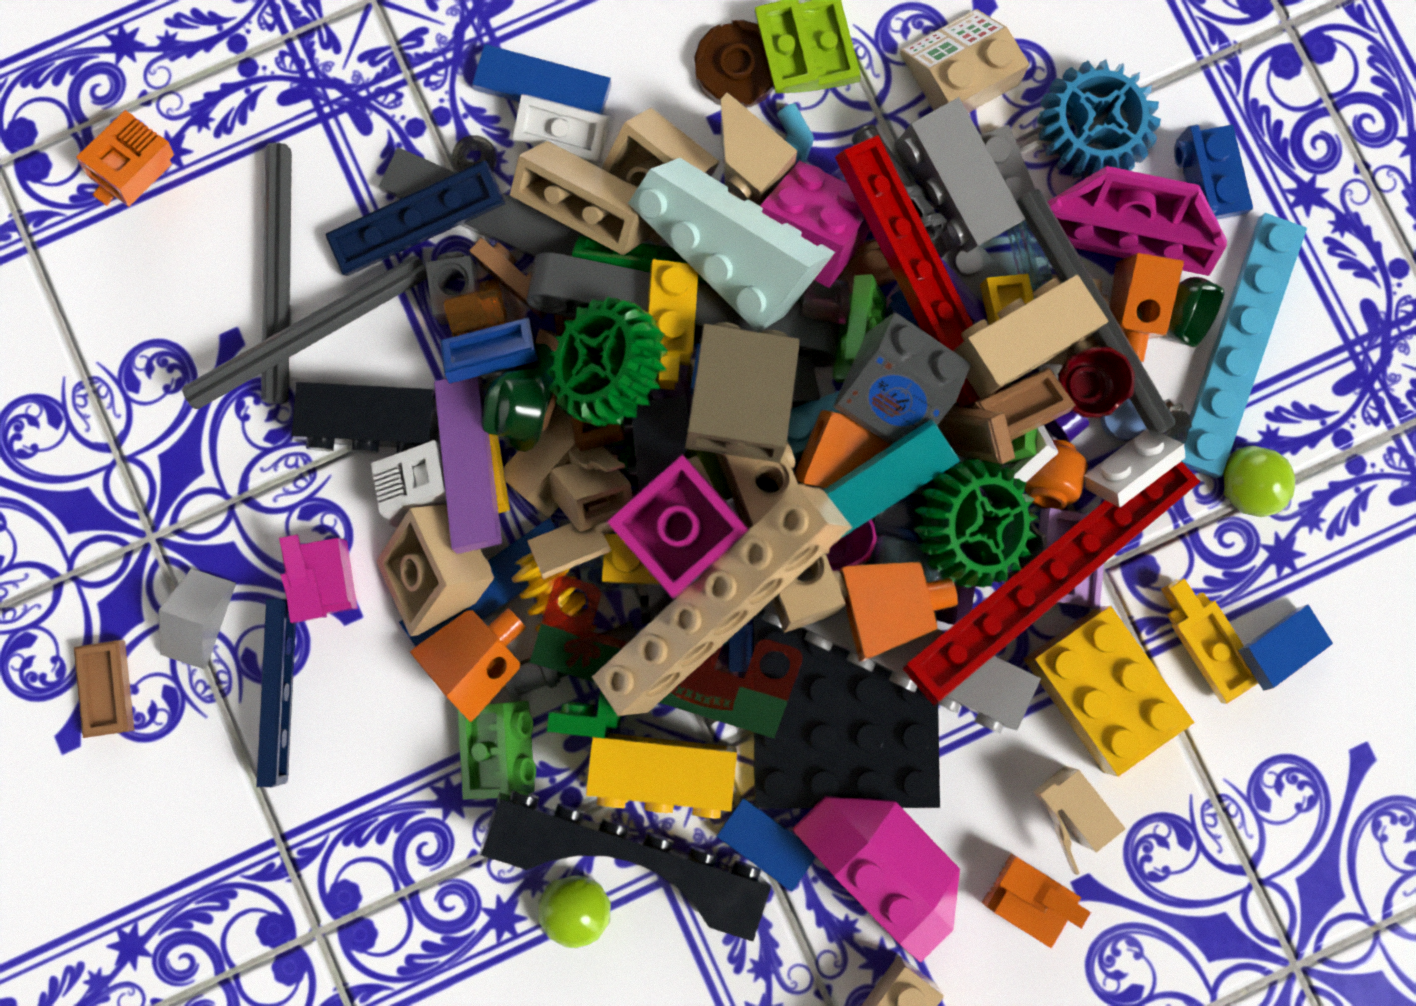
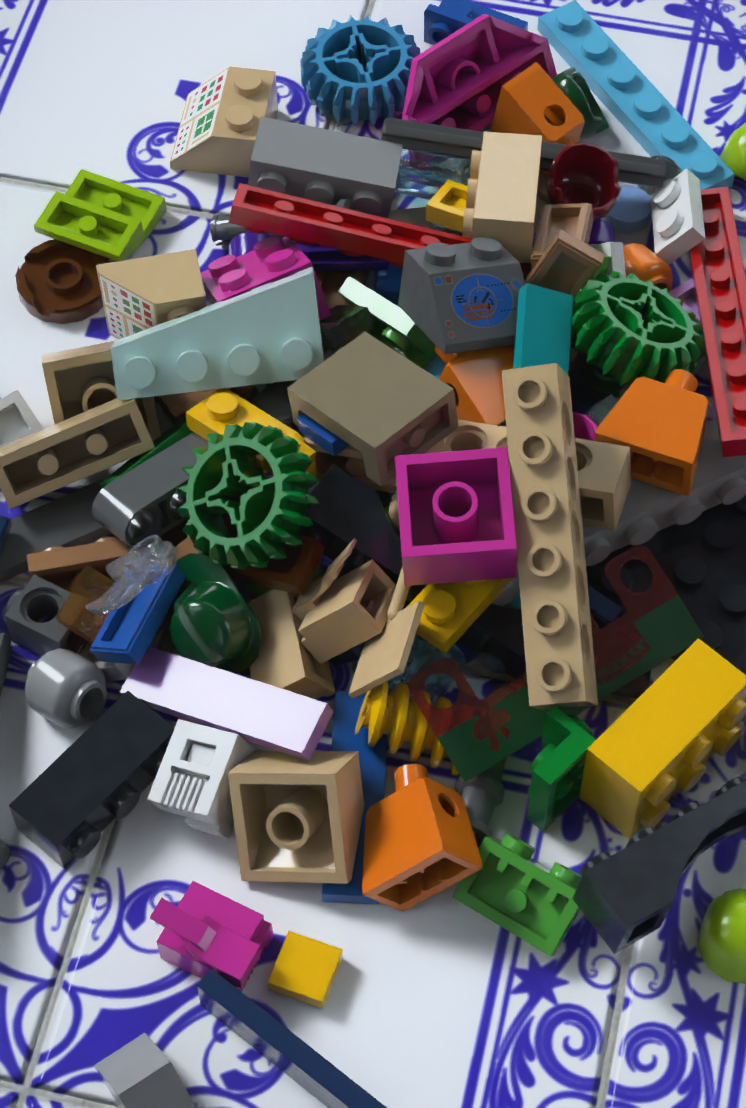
camera: 55 degrees left, 25 degrees down
(345, 648) = (305, 969): none -> yellow tile
(414, 343) = (66, 688): none -> light grey head
(510, 331) = (143, 565): none -> clear plate

